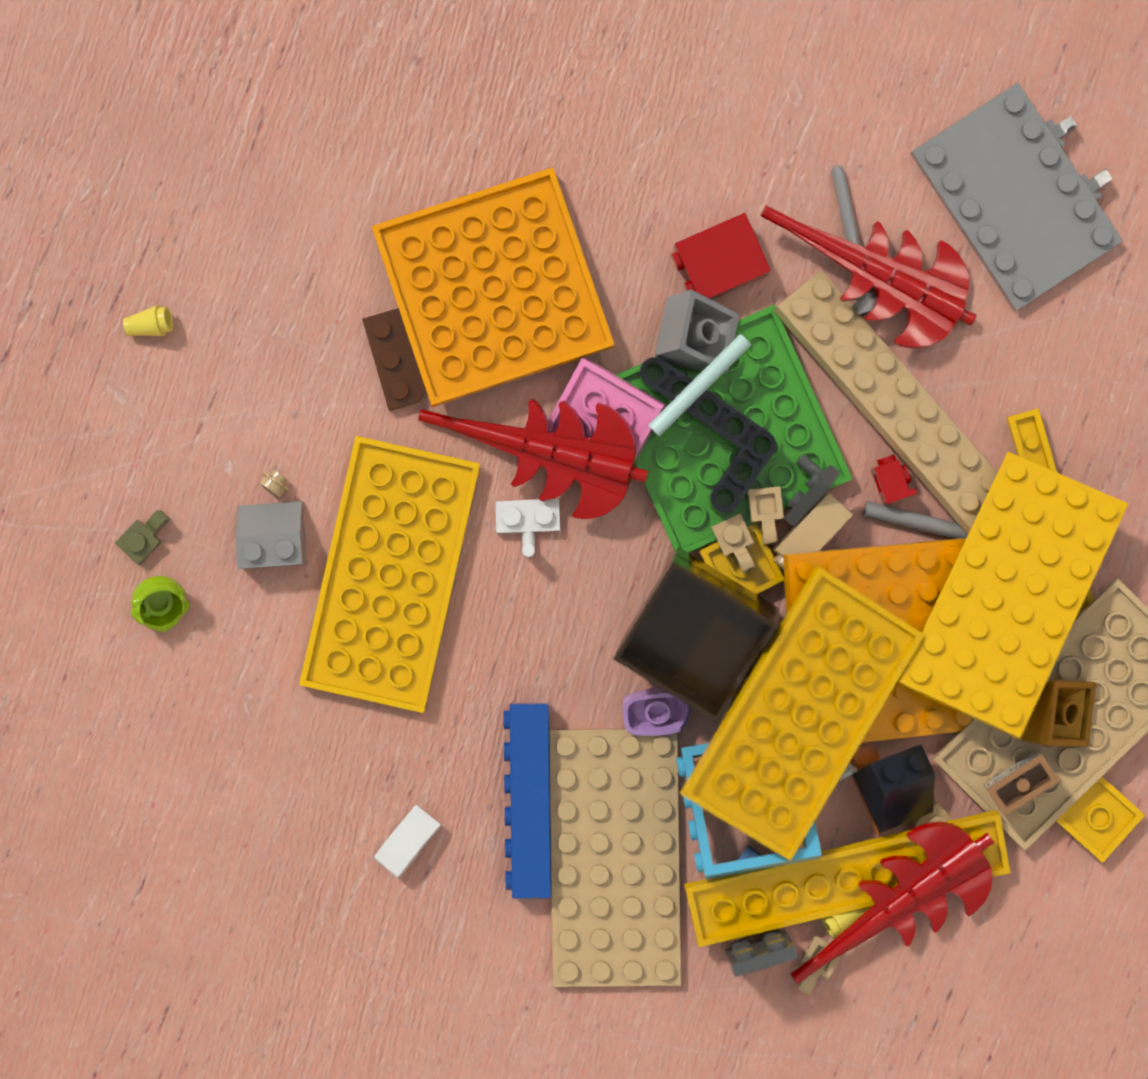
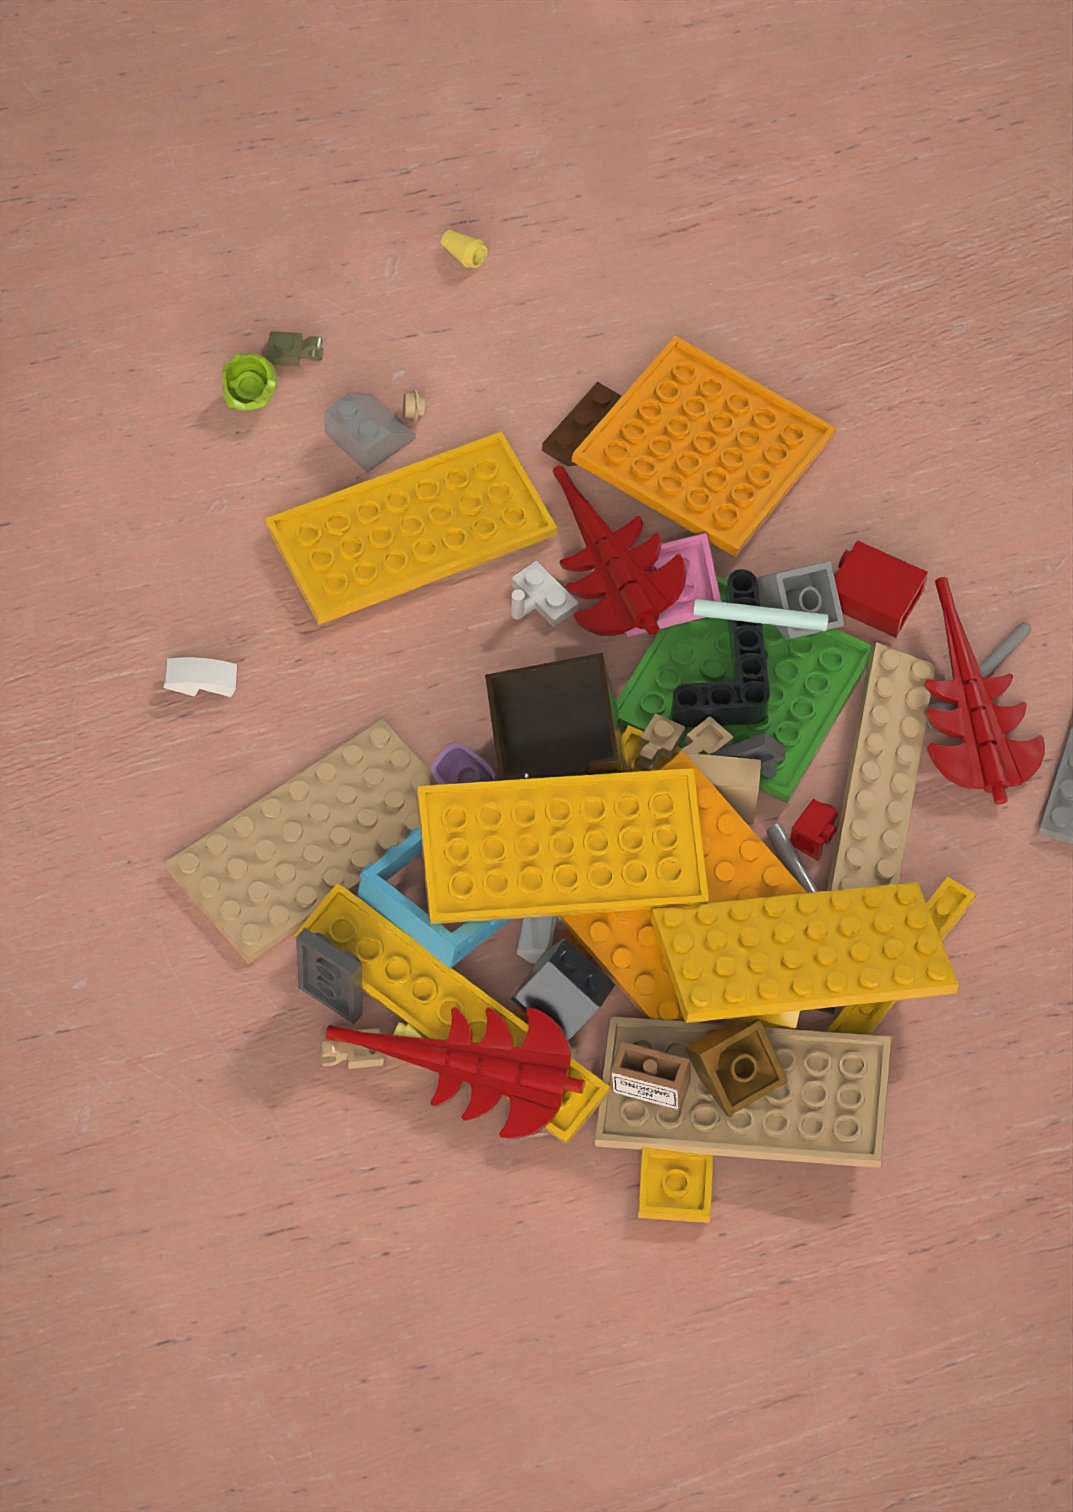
camera: 50 degrees right, 30 degrees down
(529, 800) = (311, 737): blue brick -> none

